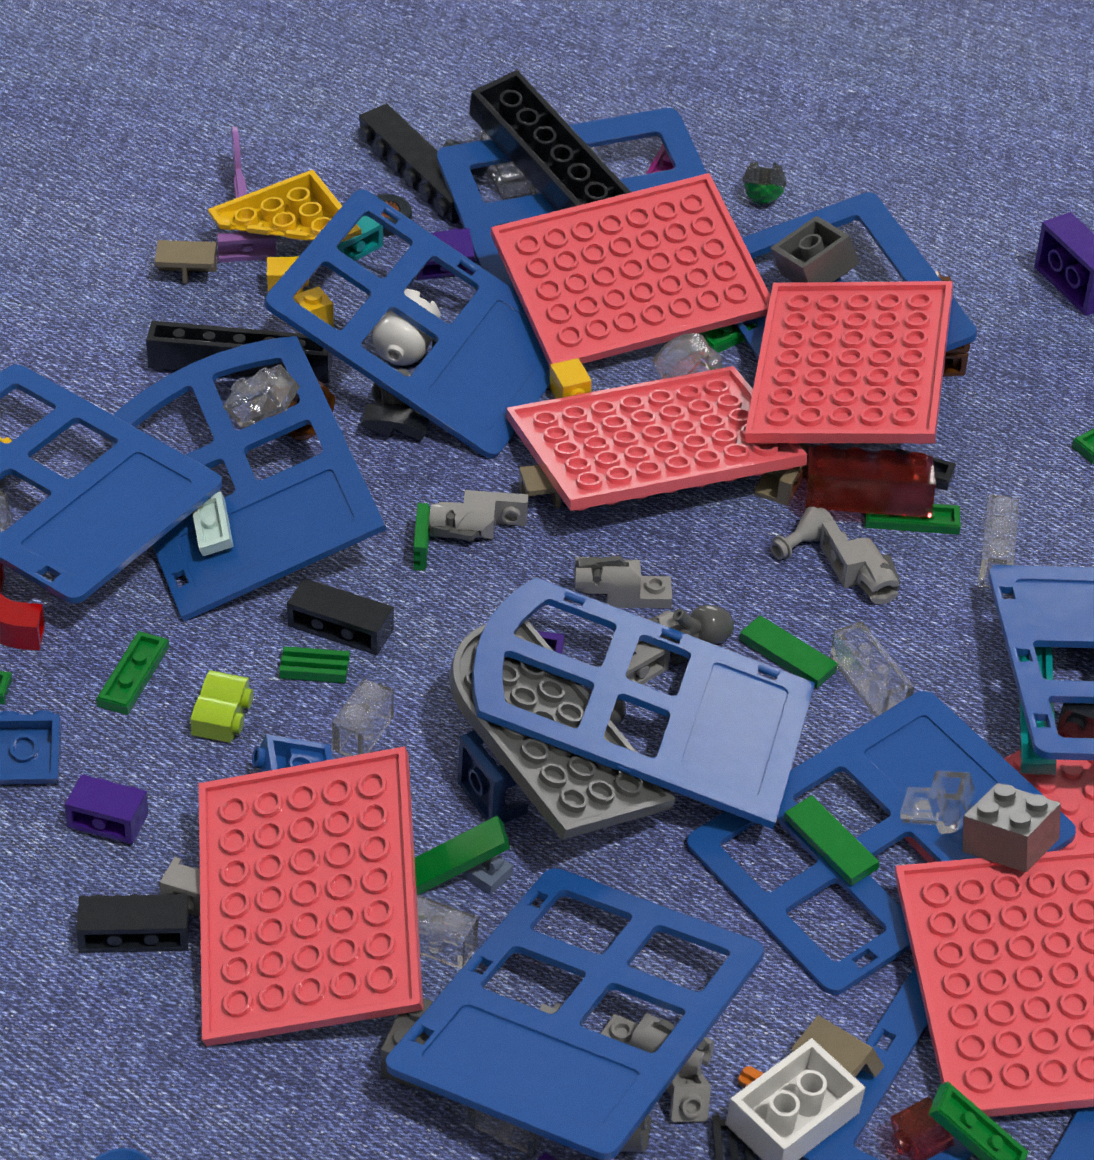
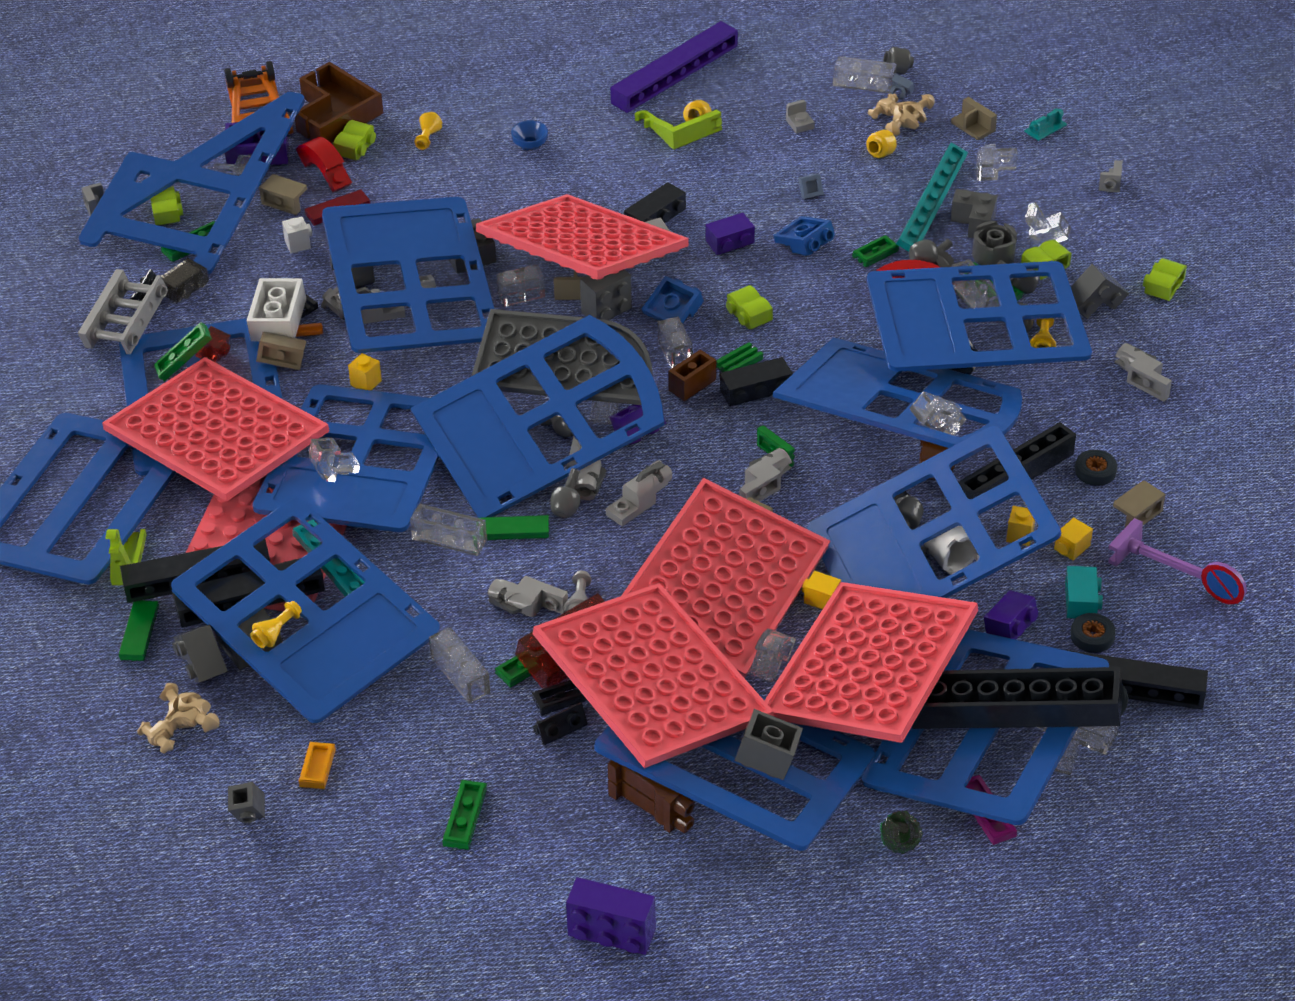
camera: 140 degrees right, 0 degrees up
(132, 673) = (816, 302): green tile -> none
(152, 311) = (1104, 463): none -> black bush
(212, 526) = (868, 358): light aqua plate -> none
(287, 209) = (1116, 558): yellow slope -> none
(403, 658) = (692, 375): none -> reddish brown brick
(460, 854) = (552, 307): green tile -> none
(771, 935) = (364, 372): none -> yellow brick
(831, 840) = (379, 432): green tile -> none
(965, 442) = (561, 724): none -> black hinge
(1011, 827) = (280, 462): dark grey brick -> none

